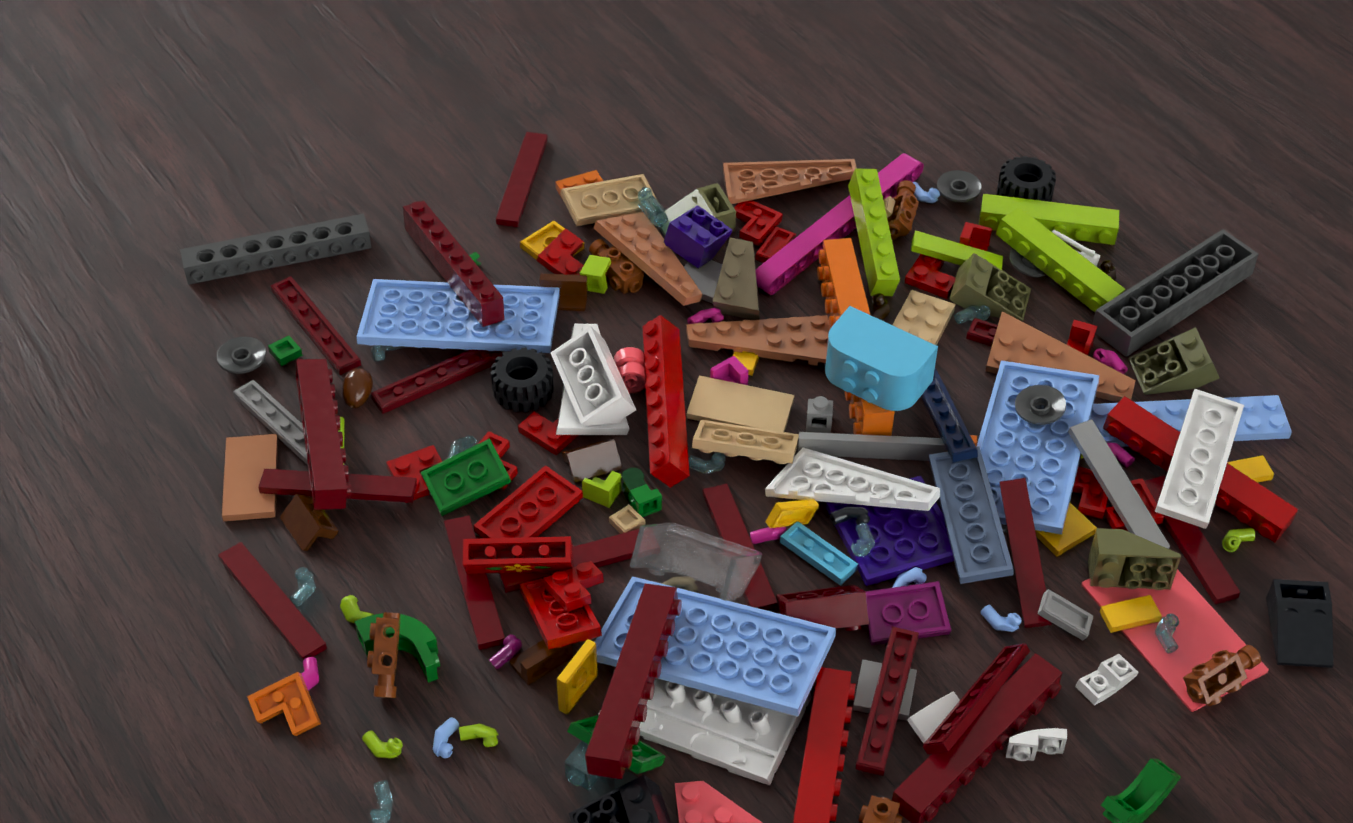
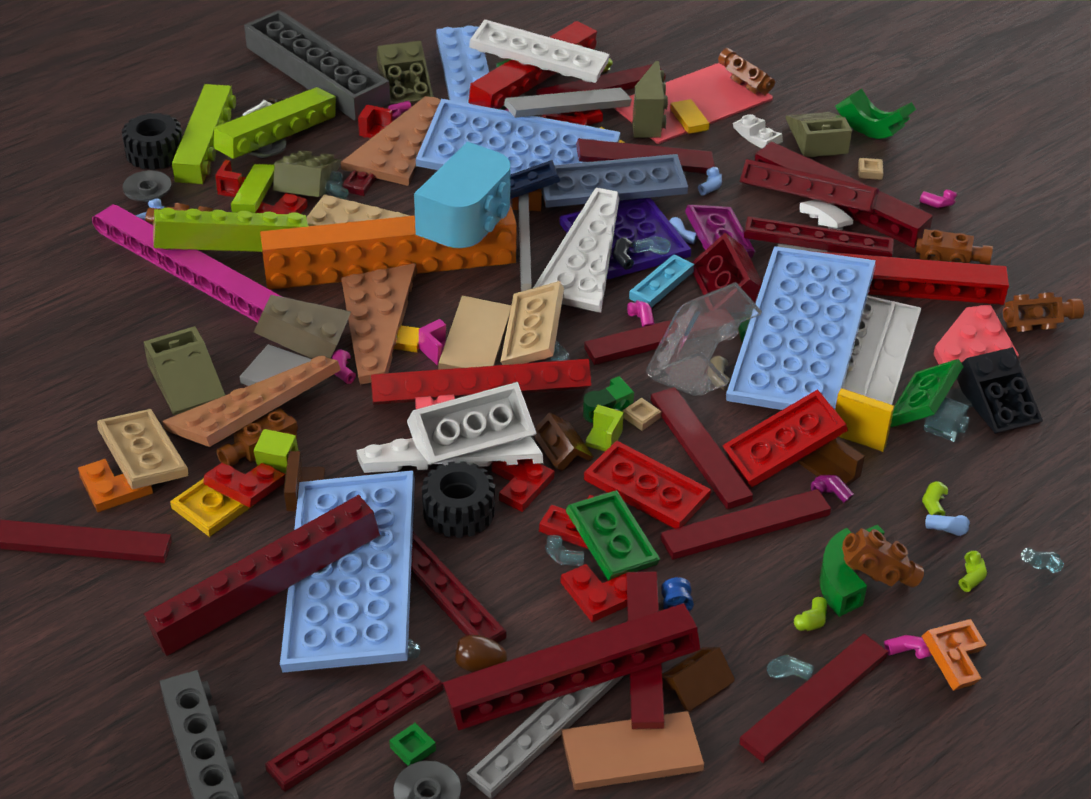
camera: 95 degrees left, 5 degrees down
(391, 516) = (676, 592): none -> blue wheel
(517, 554) = (728, 470): red brick -> none
(570, 585) = (758, 433): red plate -> none
(633, 682) = (874, 361): dark red brick -> none
(645, 193) = (151, 410): clear light blue arm -> none
(656, 218) = (175, 408): clear light blue arm -> none
(696, 236) = (231, 359): dark purple slope -> none
(759, 219) = (184, 318): red plate -> none
(763, 179) = (116, 312): nougat wing -> none
(775, 242) = (226, 319): red tile -> none
(790, 512) = (627, 288): yellow tile -> none
(819, 409) = (489, 278): light grey brick -> none
(1026, 744) = (835, 161): white slope -> none
(1040, 404) = (486, 128): dark grey dish -> none
(1043, 787) = (870, 168): none -> tan tile
(1065, 614) = (703, 143): light grey tile -> none
(1106, 734) = (820, 133): none -> olive slope
(1165, 630) = (706, 101): clear light blue arm -> none
(1301, 622) = (683, 36): black slope -> none

